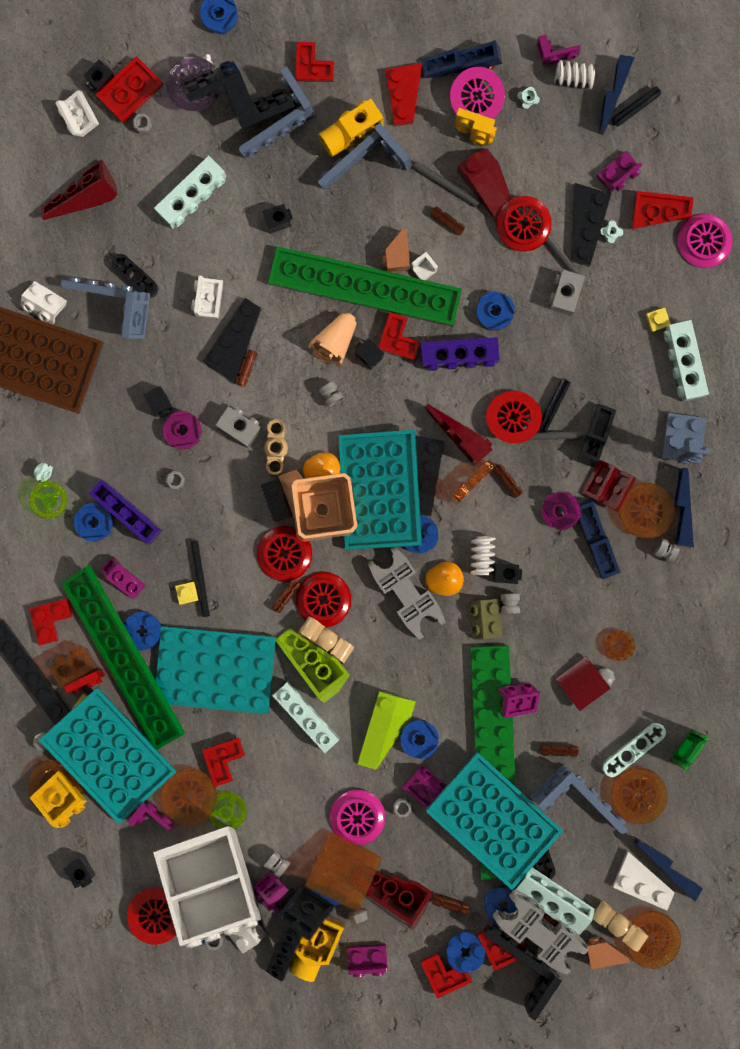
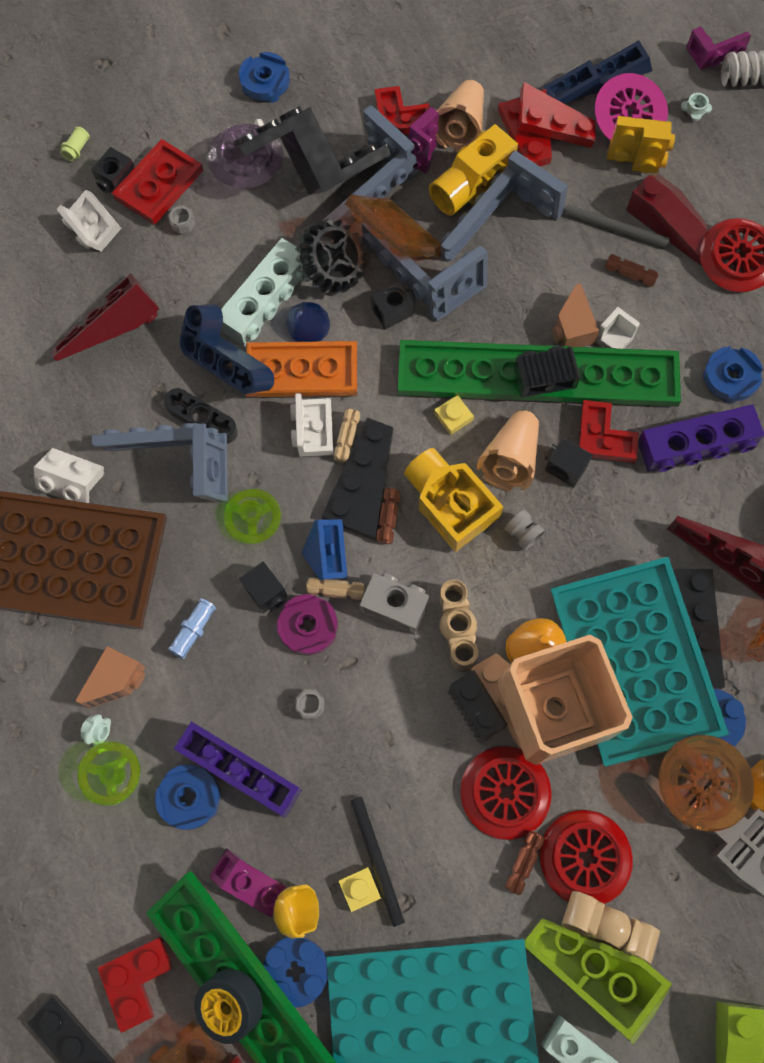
camera: 10 degrees left, 15 degrees down
(56, 442) = (111, 679): none -> nougat slope
(73, 46) = (71, 149): none -> yellowish green pin
(100, 641) = (228, 1006): none -> black wheel
(110, 419) = (192, 628): none -> light blue pin
(147, 598) = (296, 911): none -> yellow hair
(150, 235) = (203, 345): none -> dark blue beam
(154, 346) = (252, 505): none -> clear neon green piece
(202, 384) = (326, 549): none -> blue slope
(204, 410) = (335, 588): none -> tan axle
(207, 254) = (308, 367): none -> orange plate
(217, 220) = (308, 322): none -> clear blue piece
(229, 307) = (346, 435): none -> tan axle
(230, 188) = (317, 258): none -> black gear
(287, 162) = (394, 226): none -> clear orange plate
(287, 364) = (452, 498): none -> yellow brick
(303, 305) = (453, 415): none -> light yellow plate
(317, 214) = (446, 290): none -> sand blue bracket
(321, 94) = (423, 136): none -> magenta bracket
(354, 76) = (461, 116): none -> light nougat cone
(367, 290) = (546, 371): none -> black brick
(399, 548) = (729, 758): none -> clear orange piece
(420, 91) = (553, 119): none -> wing

